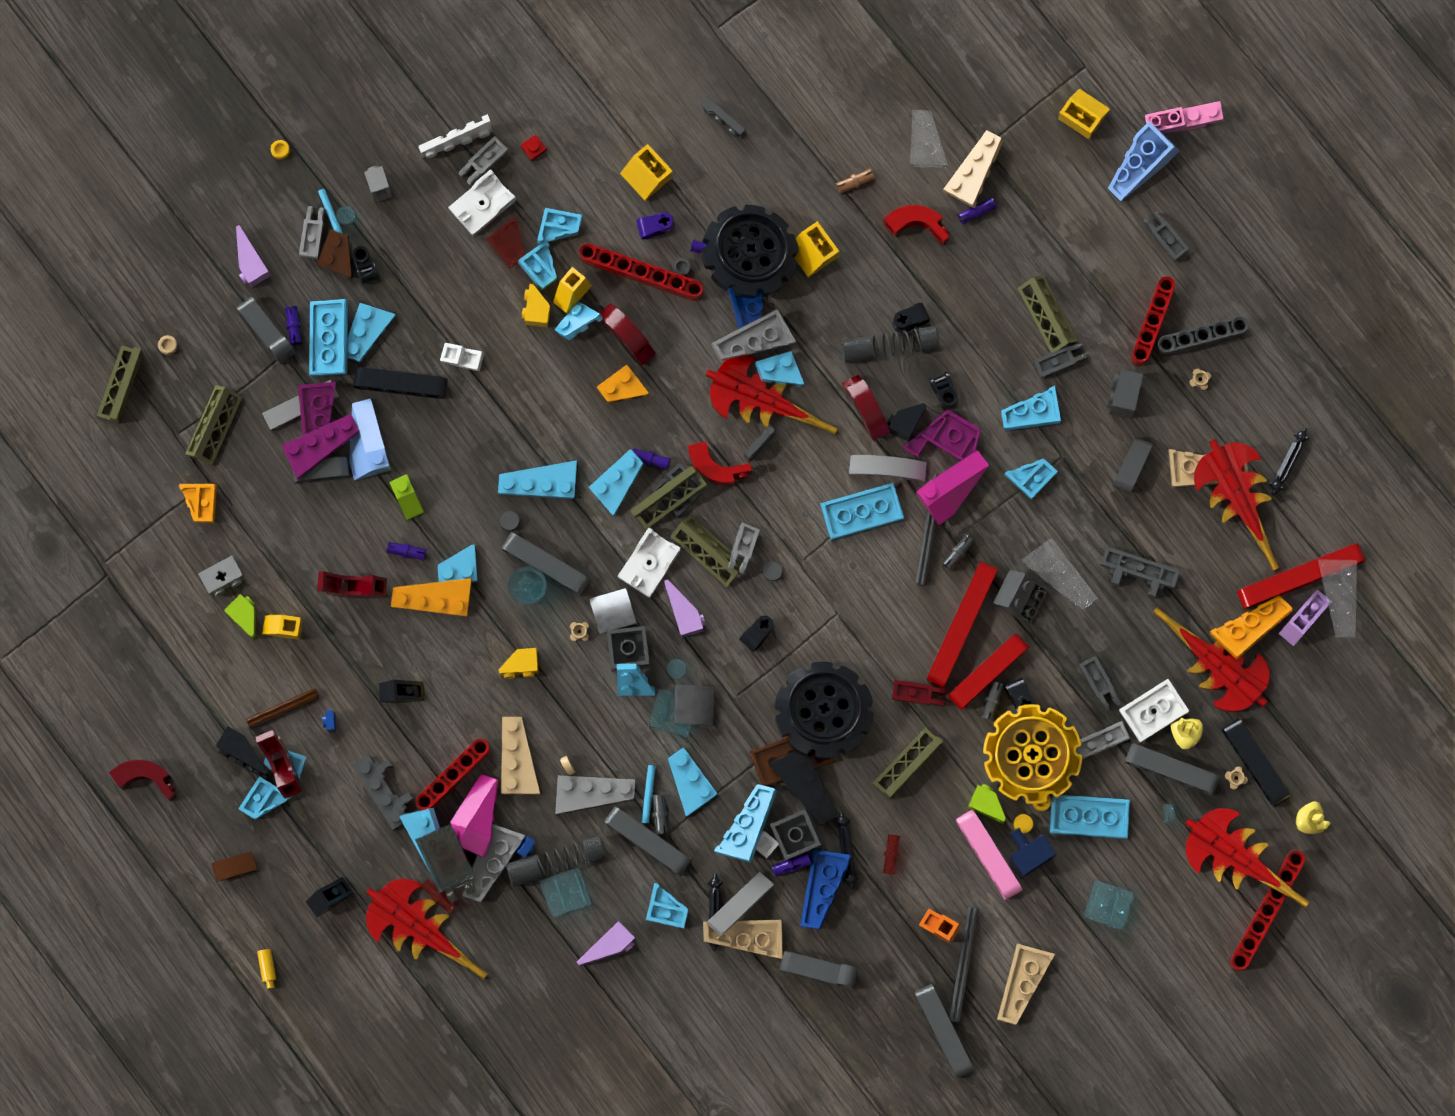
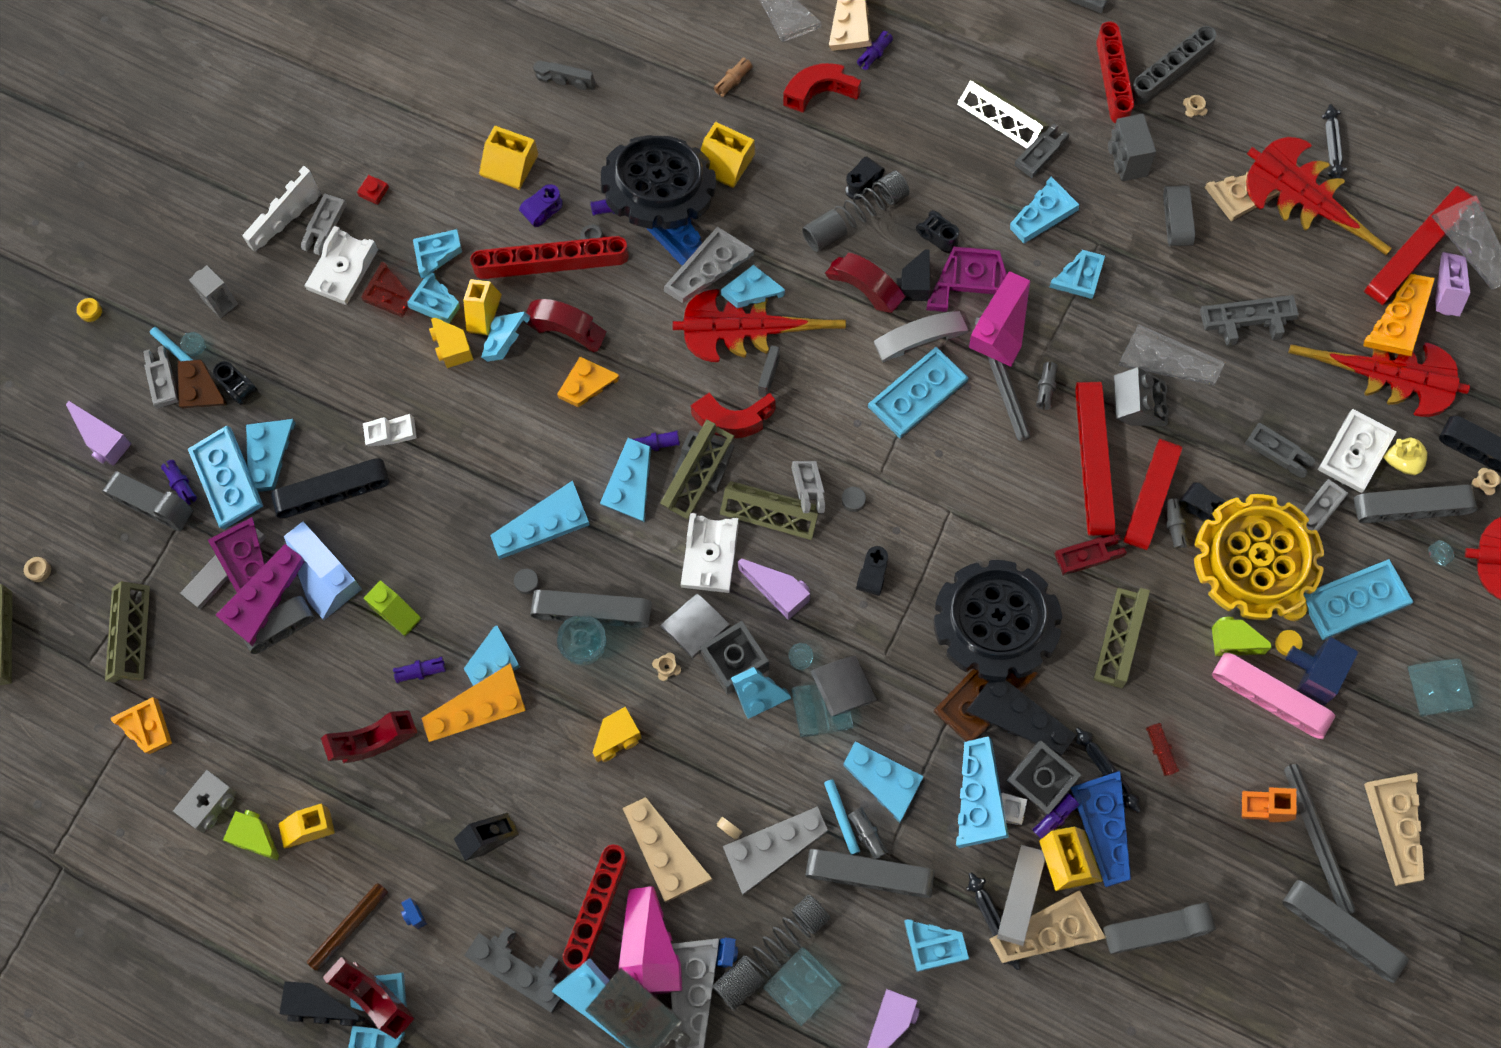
camera: 25 degrees left, 10 degrees down
(786, 896) = (1070, 858): none -> yellow slope

